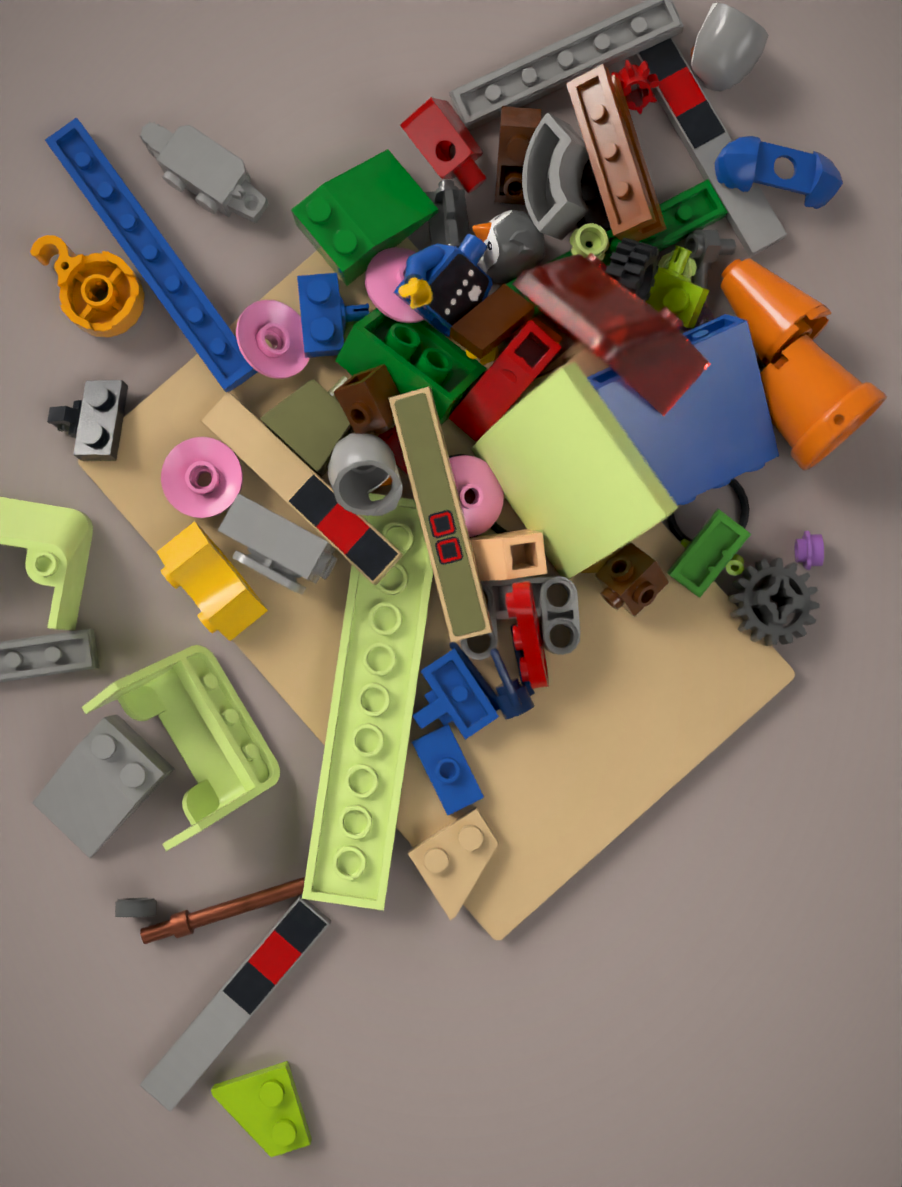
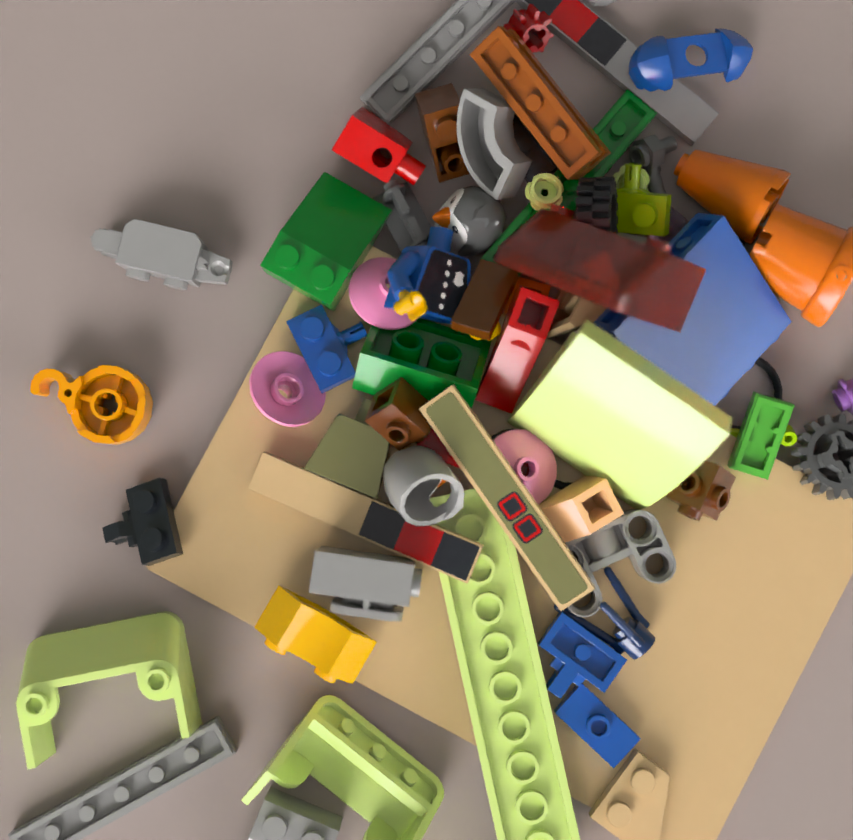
camera: 20 degrees left, 0 degrees up
(151, 254) = (142, 350): blue plate -> none
(187, 463) = (248, 543): bright pink dish -> none
(528, 634) = (627, 577): red plate -> none

